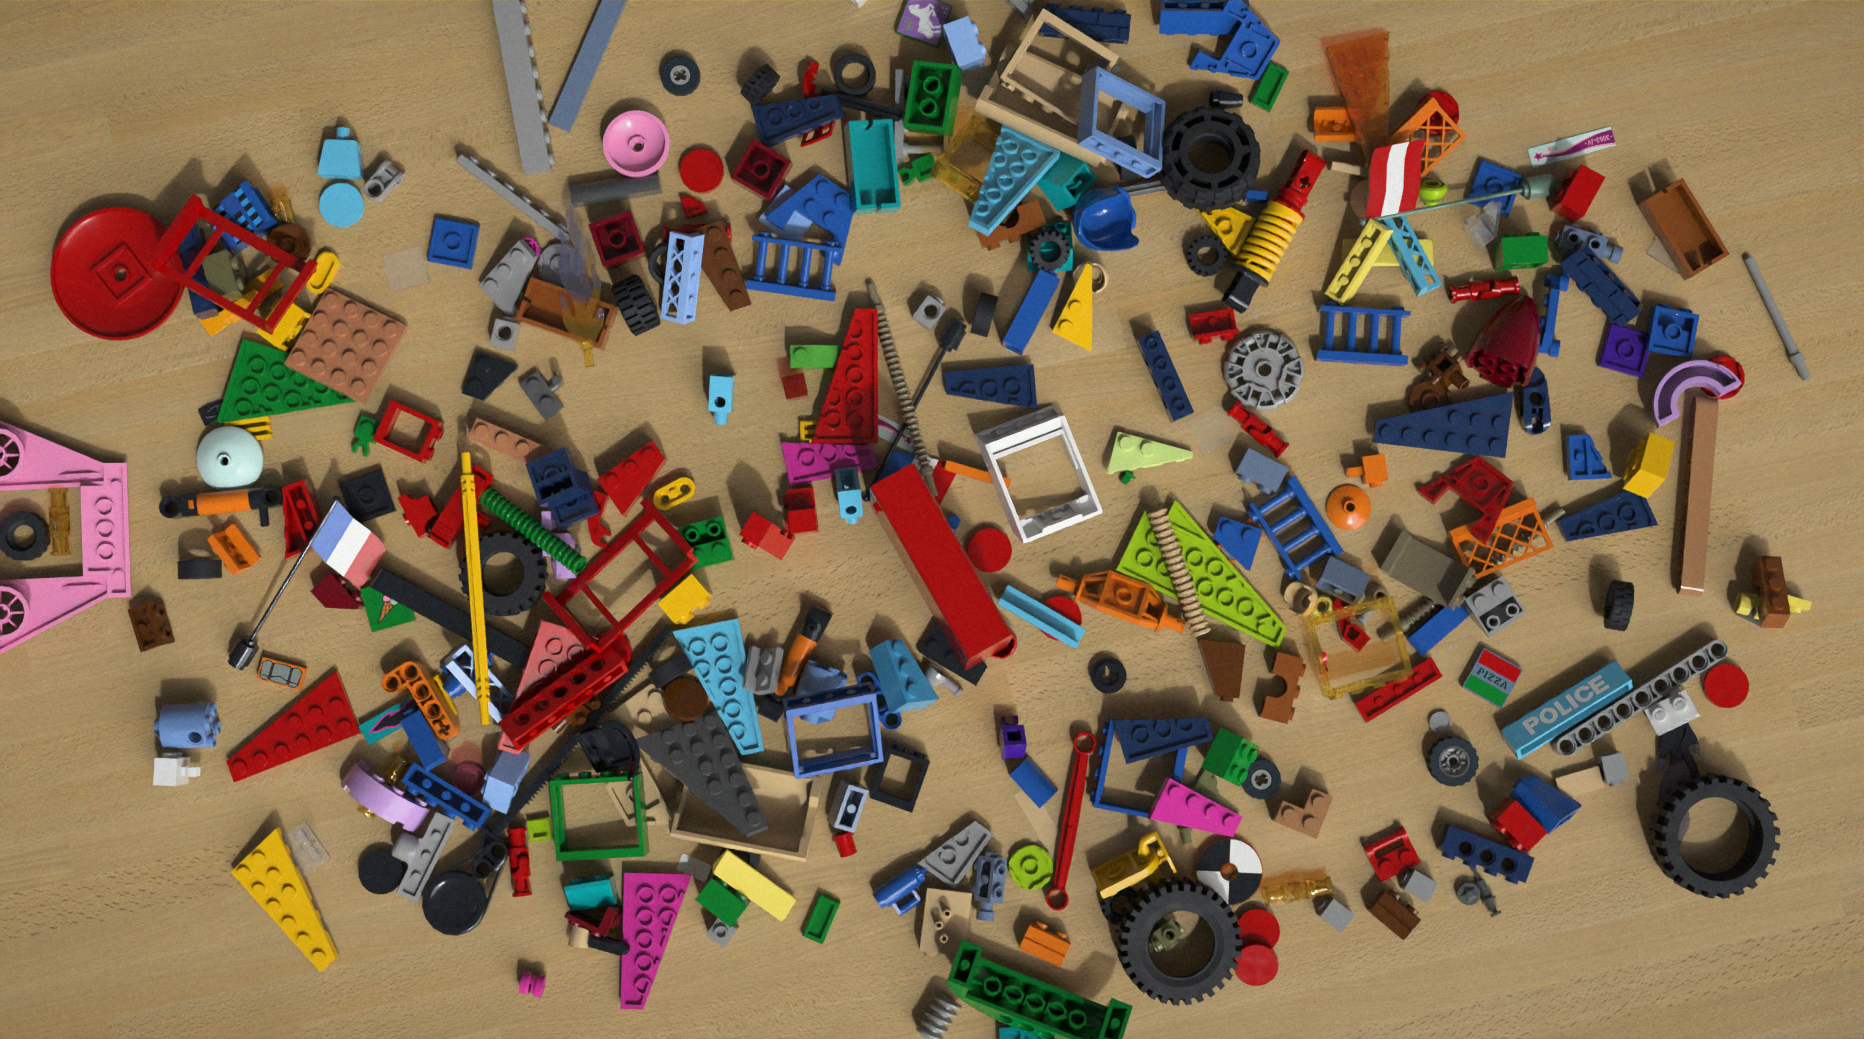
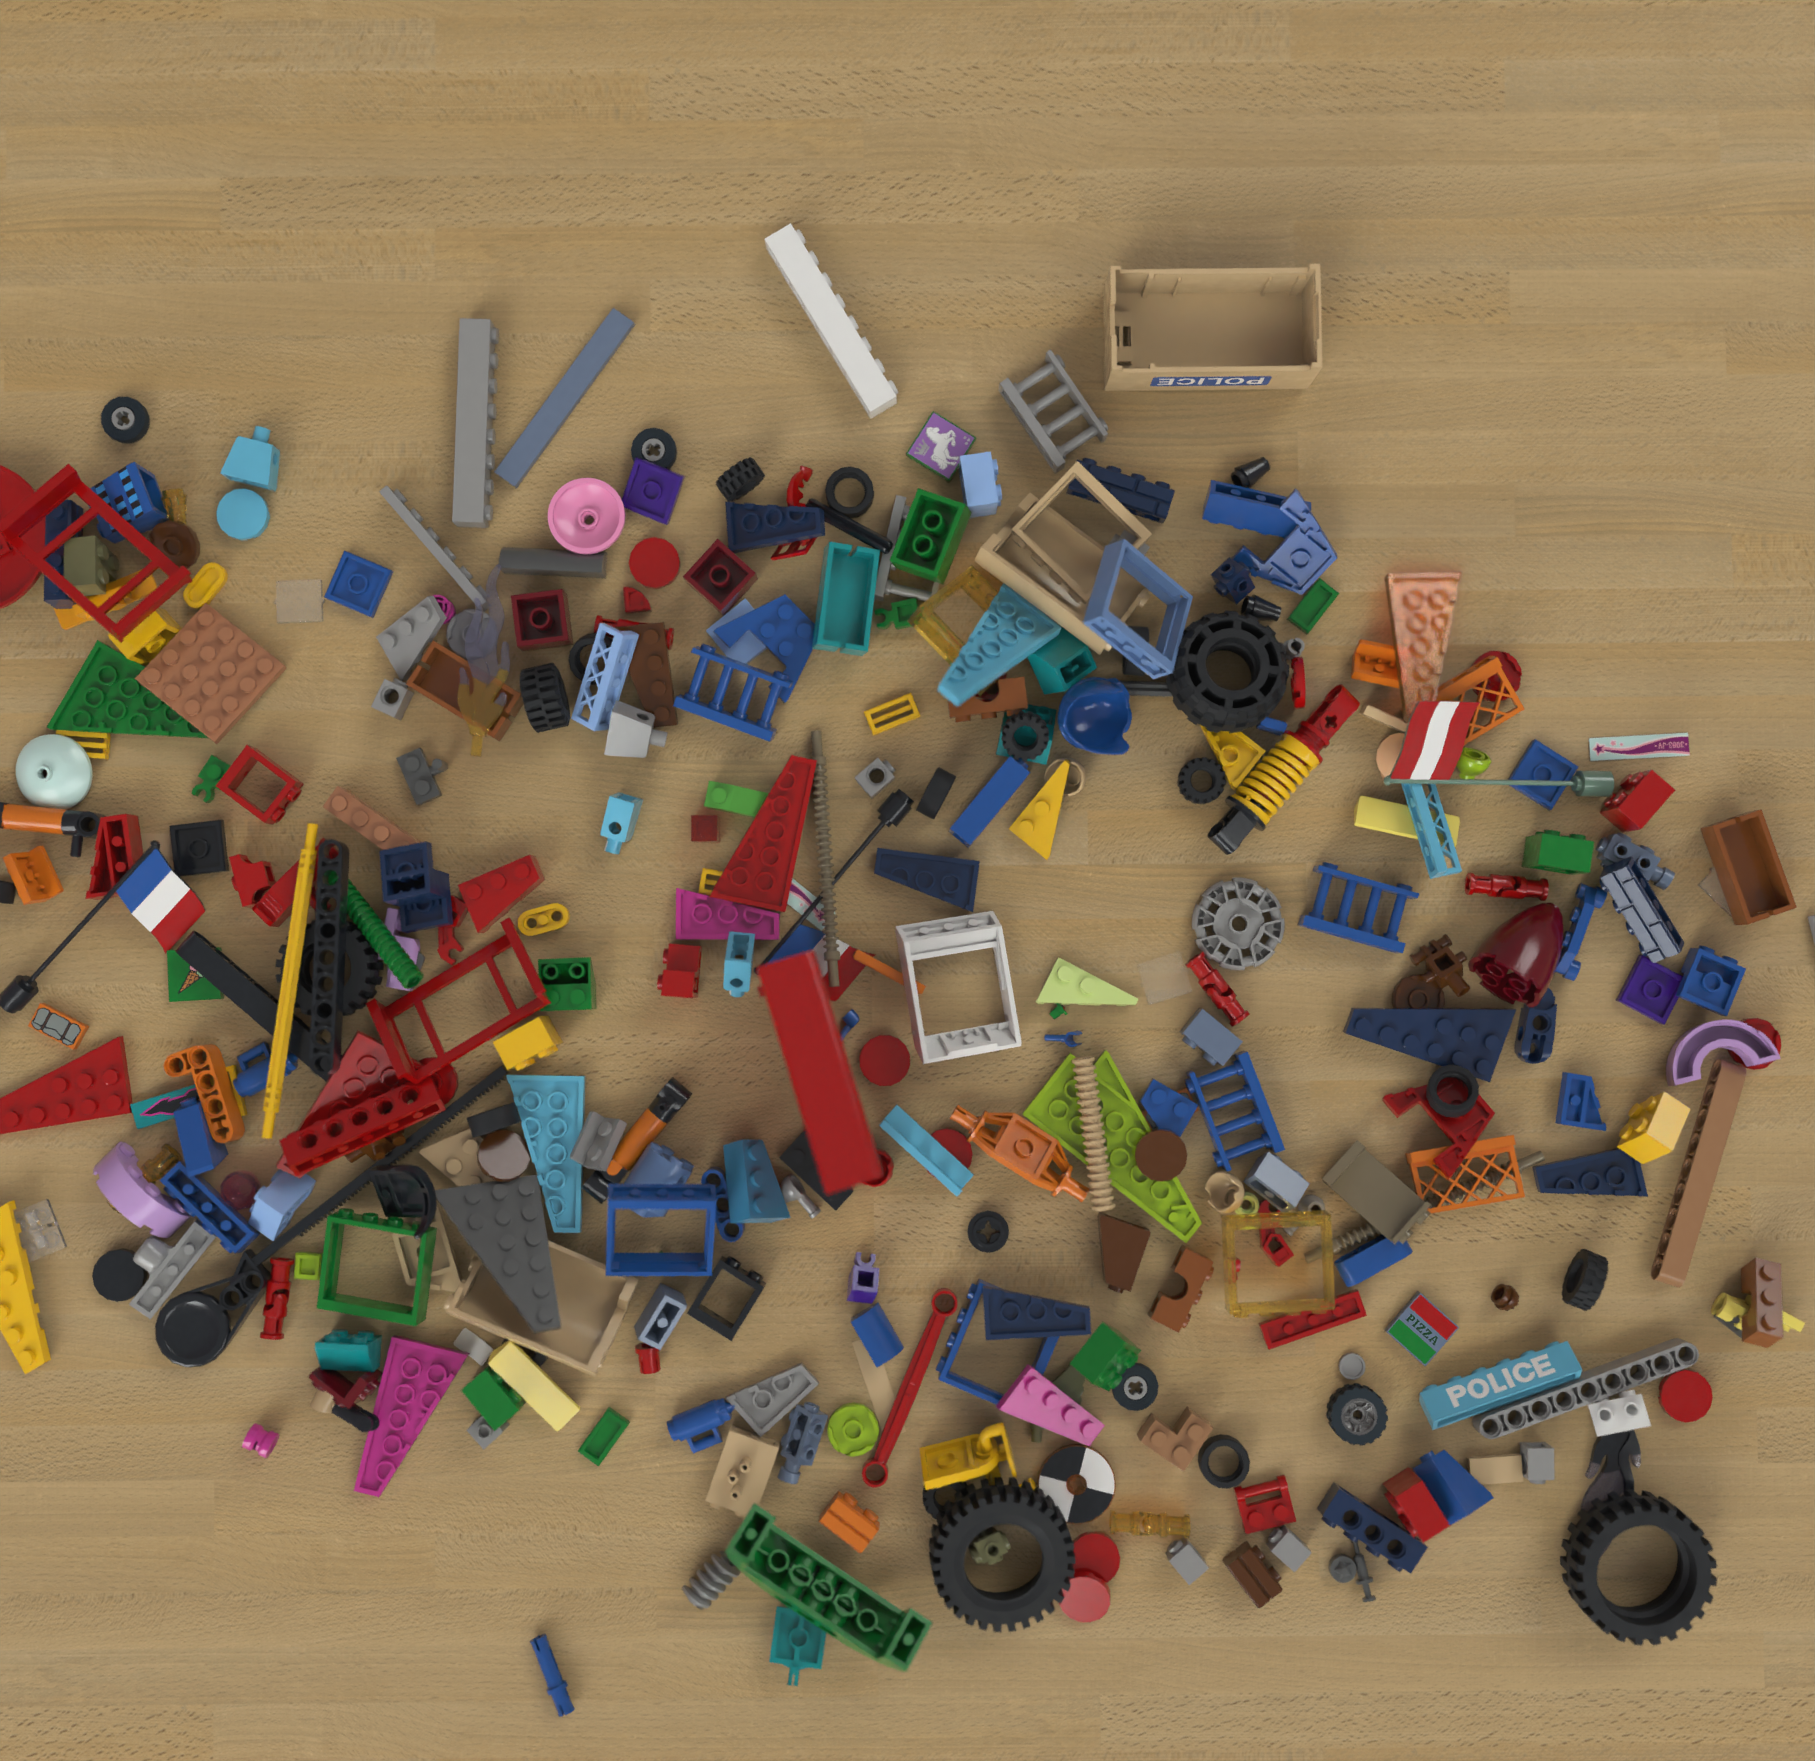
camera: 10 degrees right, 0 degrees up
(210, 412) = (43, 715): black sticker -> none
(217, 136) = (112, 423): none -> black bush
(335, 594) = (137, 950): dark red slope -> none
(384, 180) = (295, 496): light grey piece -> none
(468, 682) = (257, 1079): light blue fence -> none
(486, 375) = (362, 740): black wing -> none
(498, 552) = (336, 969): none -> black beam
(687, 110) = (652, 490): none -> dark purple tile
(716, 318) = (632, 732): none -> light grey torso
(766, 535) = (633, 990): red wedge -> none
(947, 246) = (912, 706): none -> yellow tile
(1140, 498) = (1068, 1038): none -> blue hand
(1164, 376) = (1124, 907): dark blue brick -> none
(1196, 80) = (1233, 580): none -> dark blue brick
(1213, 325) = (1191, 860): red bracket -> none
(1240, 578) = (1161, 1155): none -> reddish brown tile
(1264, 123) = (1297, 643): none -> light grey pin
(1270, 155) = (1298, 683): none -> red tile
(1337, 509) = (1287, 1099): orange dish -> none
(1358, 262) = (1372, 825): light yellow slope -> none
(1362, 836) = (1233, 1479): none -> black tyre
(1371, 469) = (1336, 1063): orange brick -> none
(1473, 455) = (1457, 1072): none -> black tyre
(1486, 226) = (1526, 815): clear slope -> none
(1493, 606) = (1442, 1248): light grey slope -> none
(1556, 636) = (1505, 1297): none -> reddish brown plate

